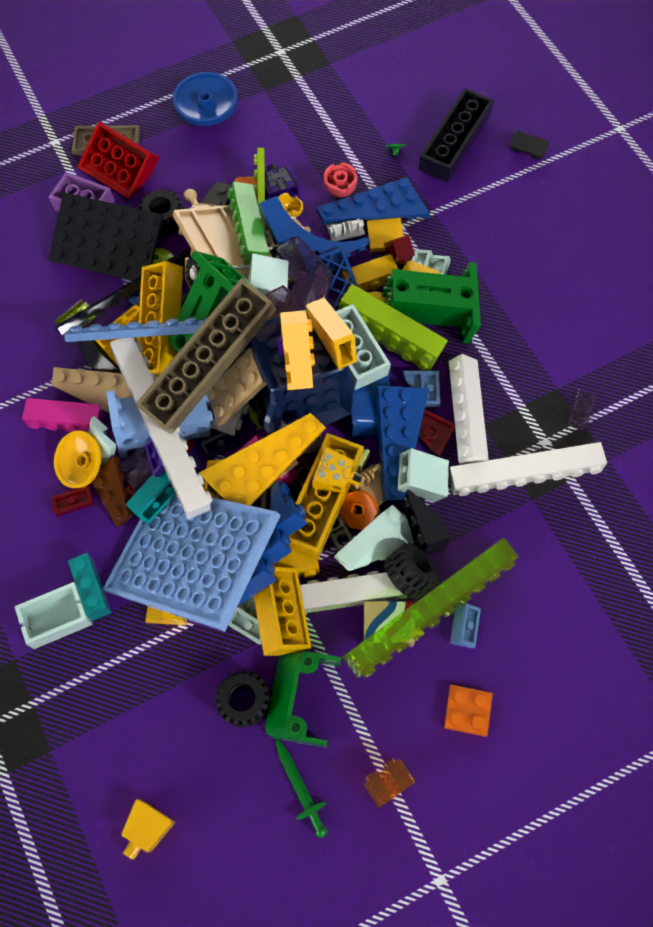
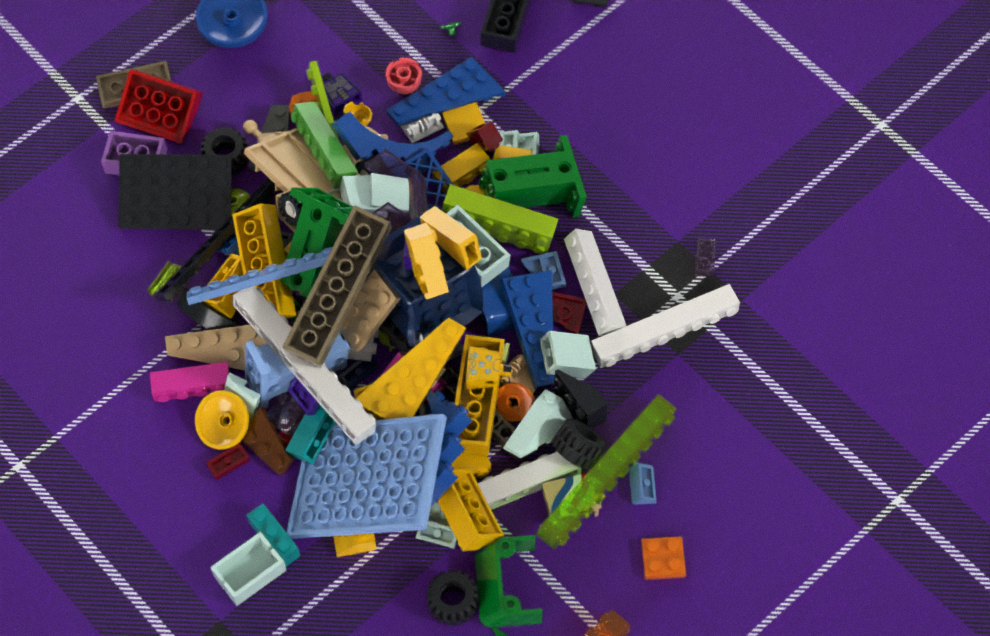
camera: 15 degrees left, 5 degrees down
(293, 277) = (389, 189): none -> light aqua slope

